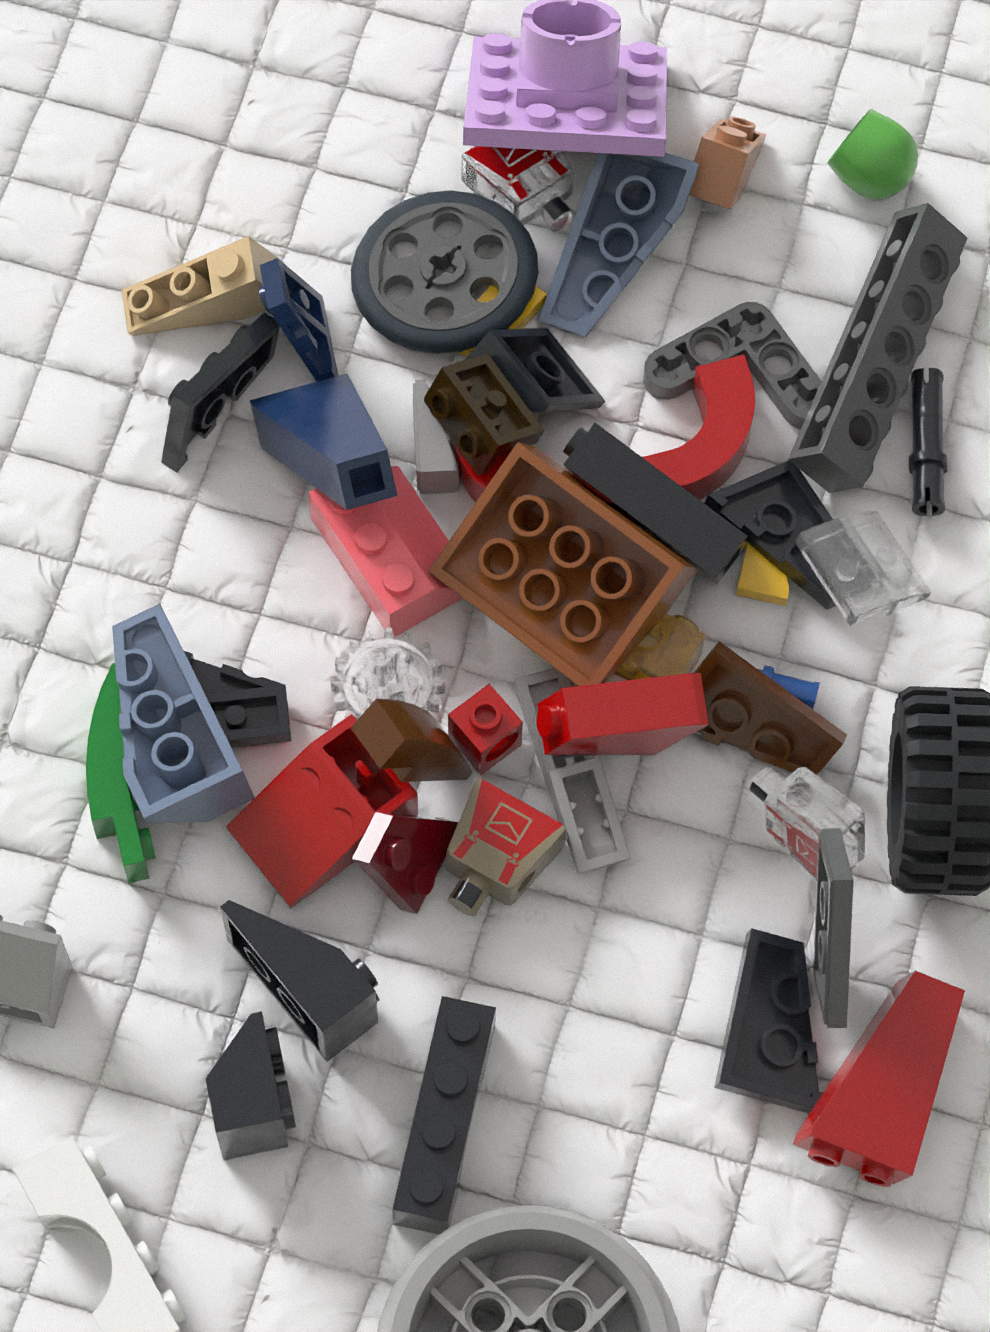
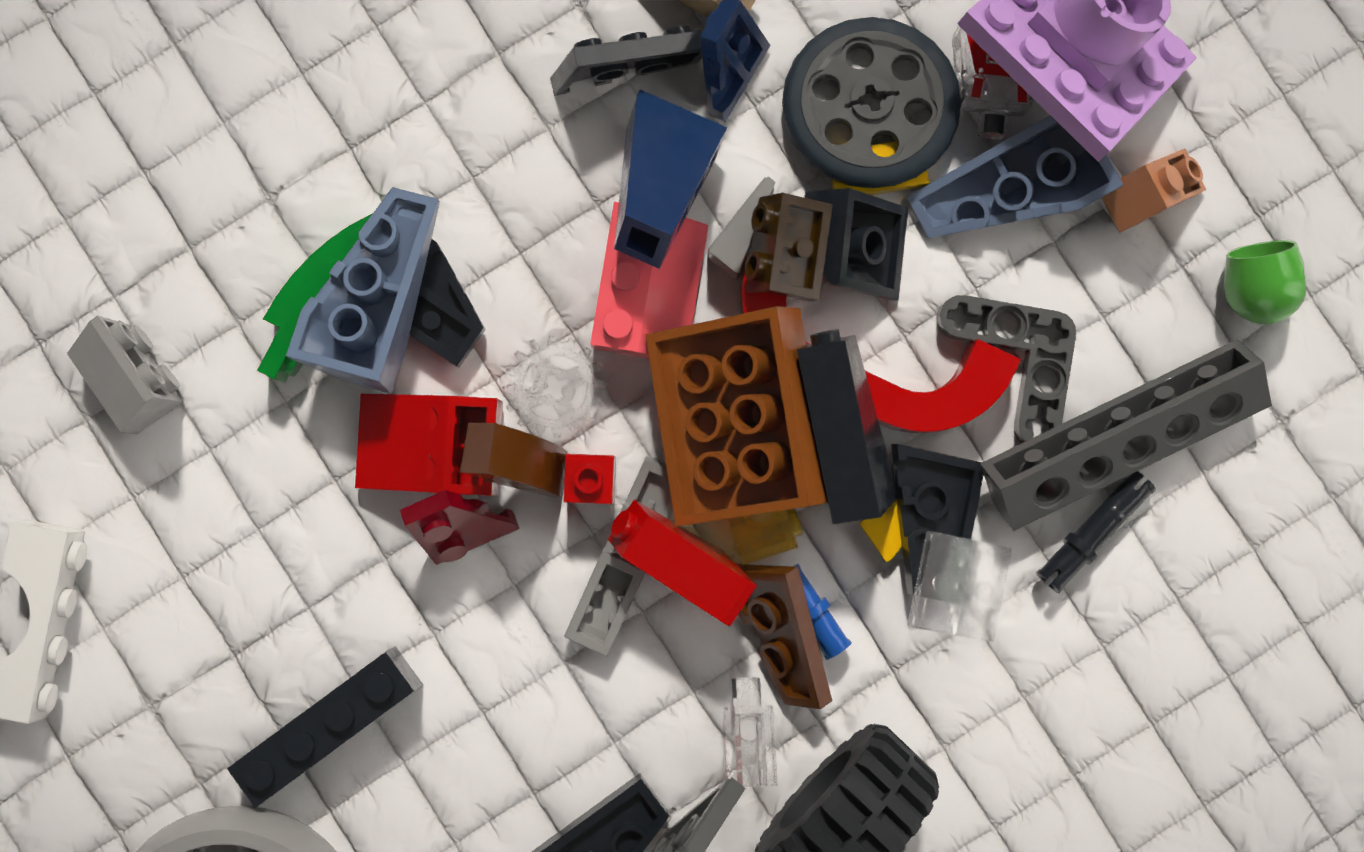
camera: 40 degrees right, 20 degrees up
(244, 1097) = (202, 609): black slope -> none
(309, 978) = (308, 561): black slope -> none
(499, 848) = (524, 571): torso -> none

